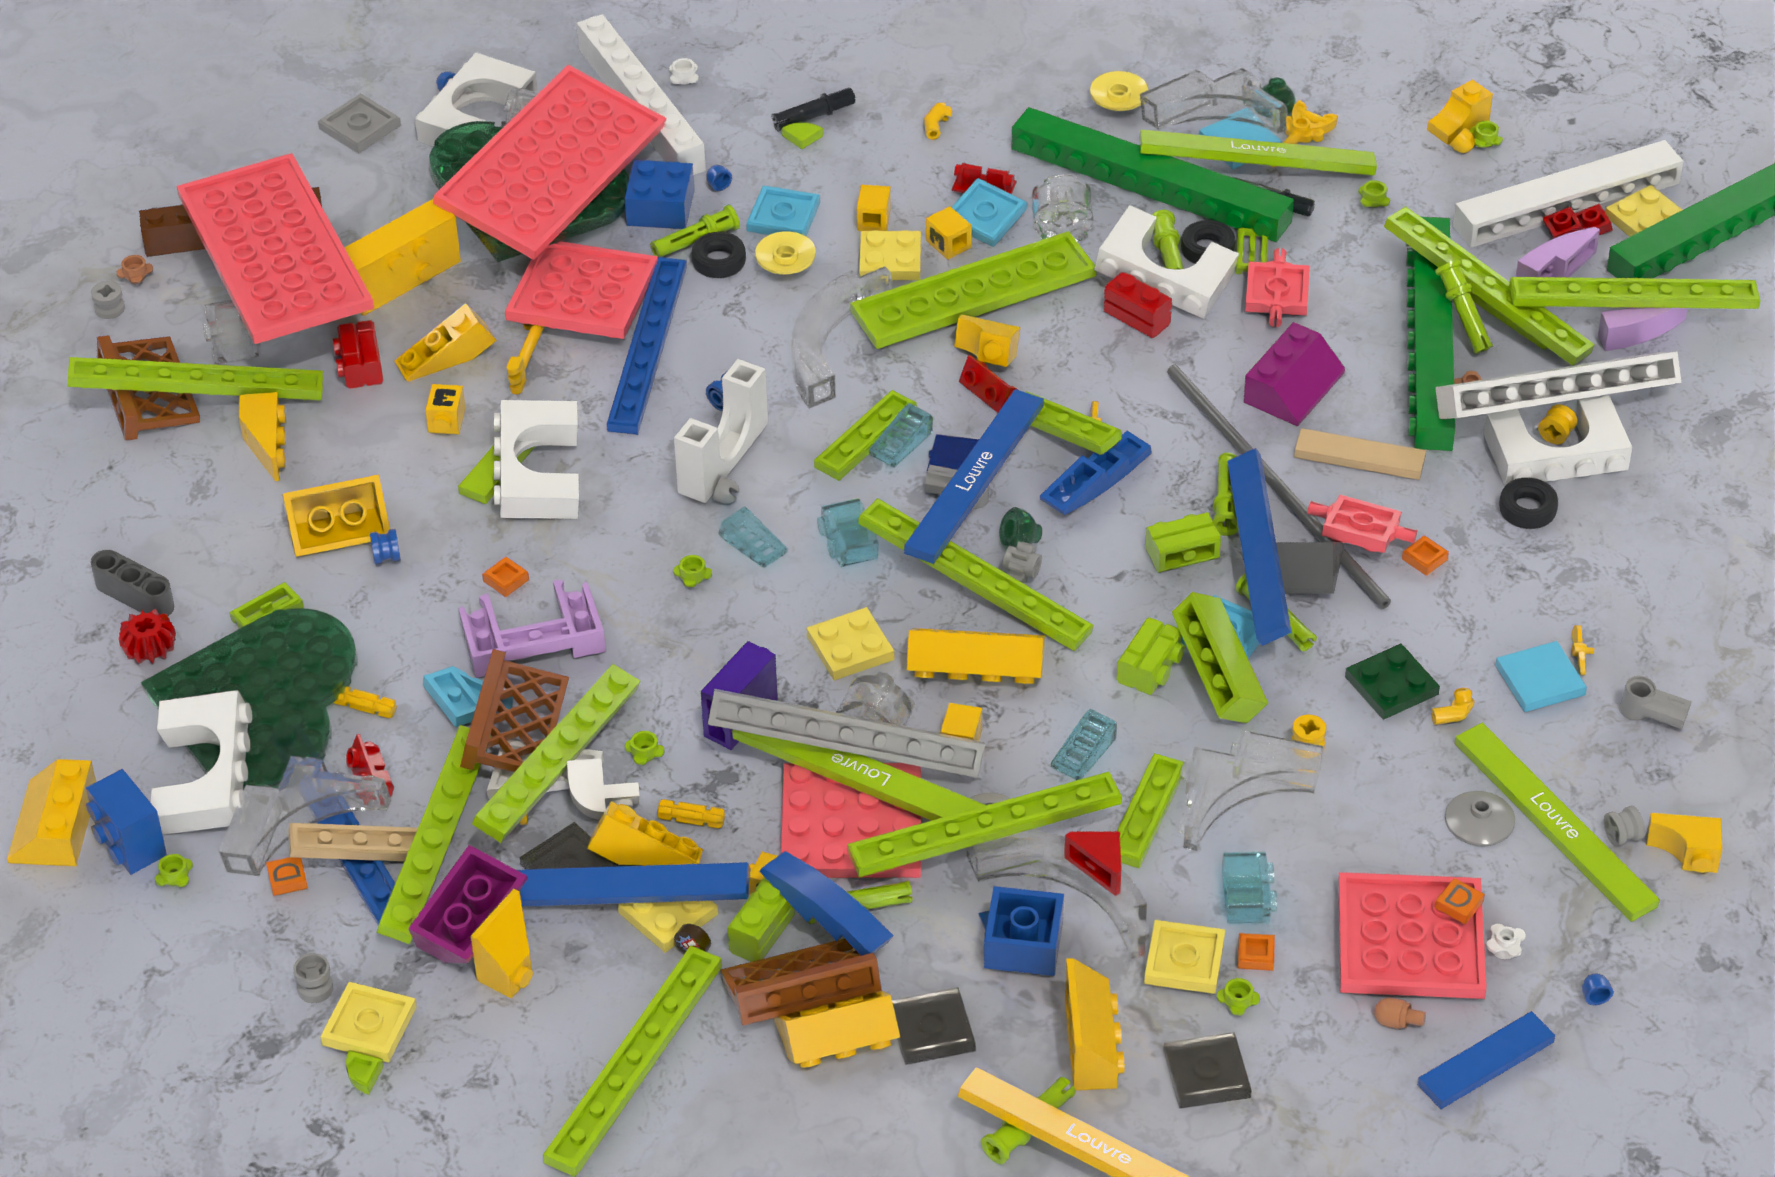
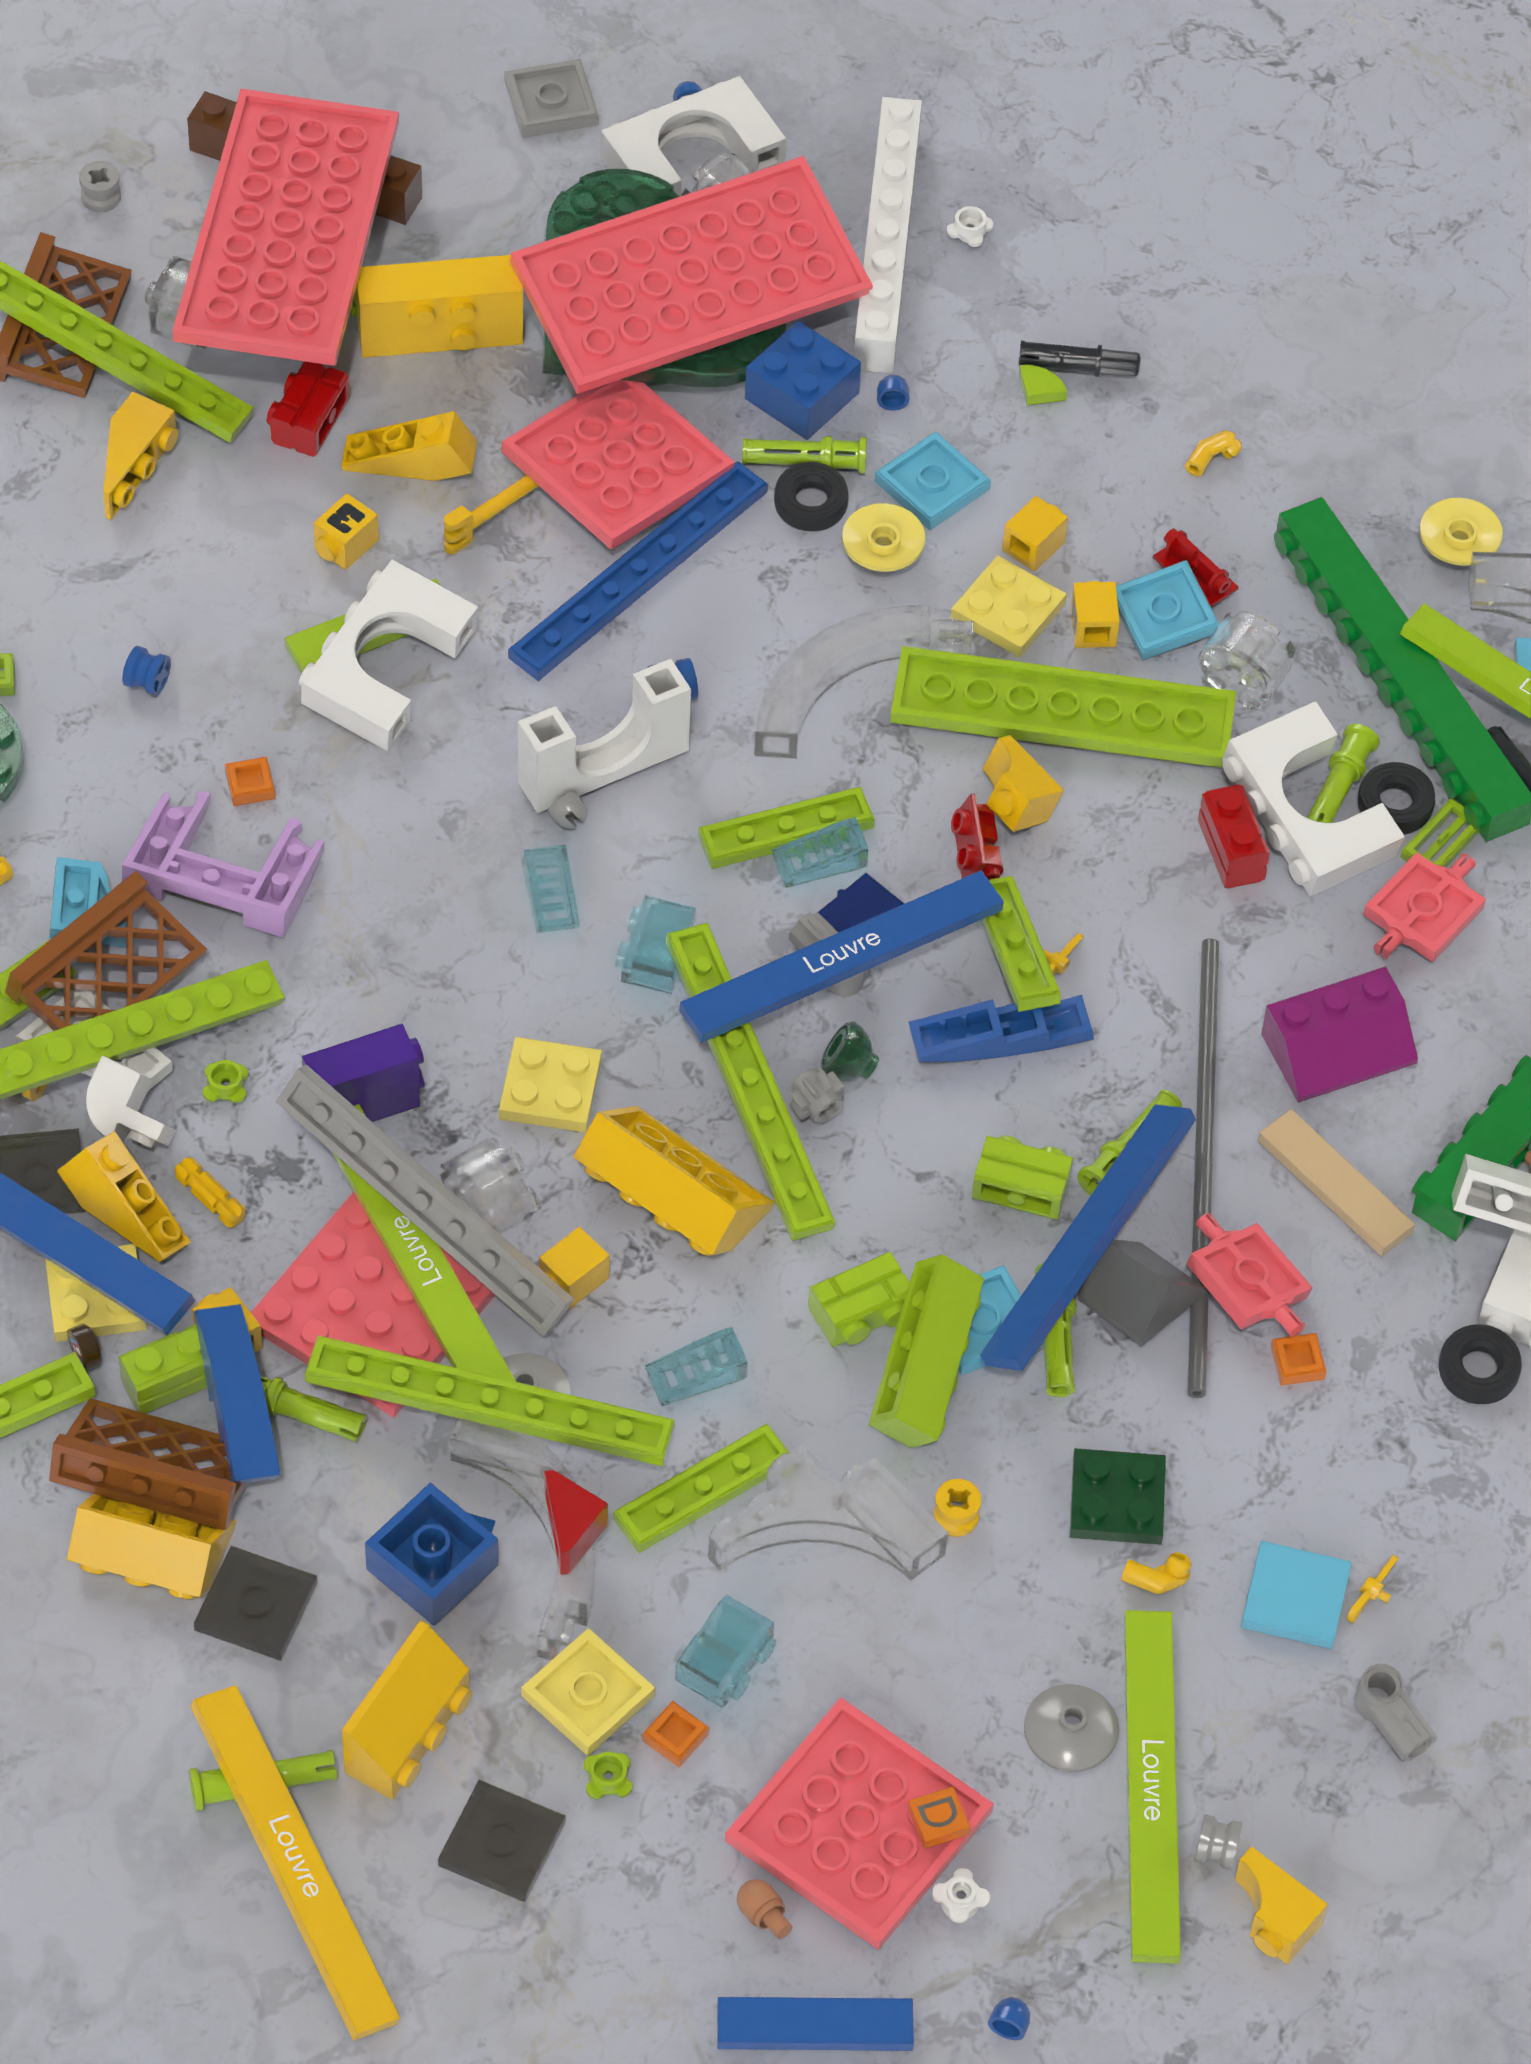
camera: 30 degrees right, 10 degrees up
(134, 269) = (159, 161): nougat plate -> none
(335, 515) = (126, 600): yellow slope -> none
(692, 570) = (450, 882): lime plate -> none

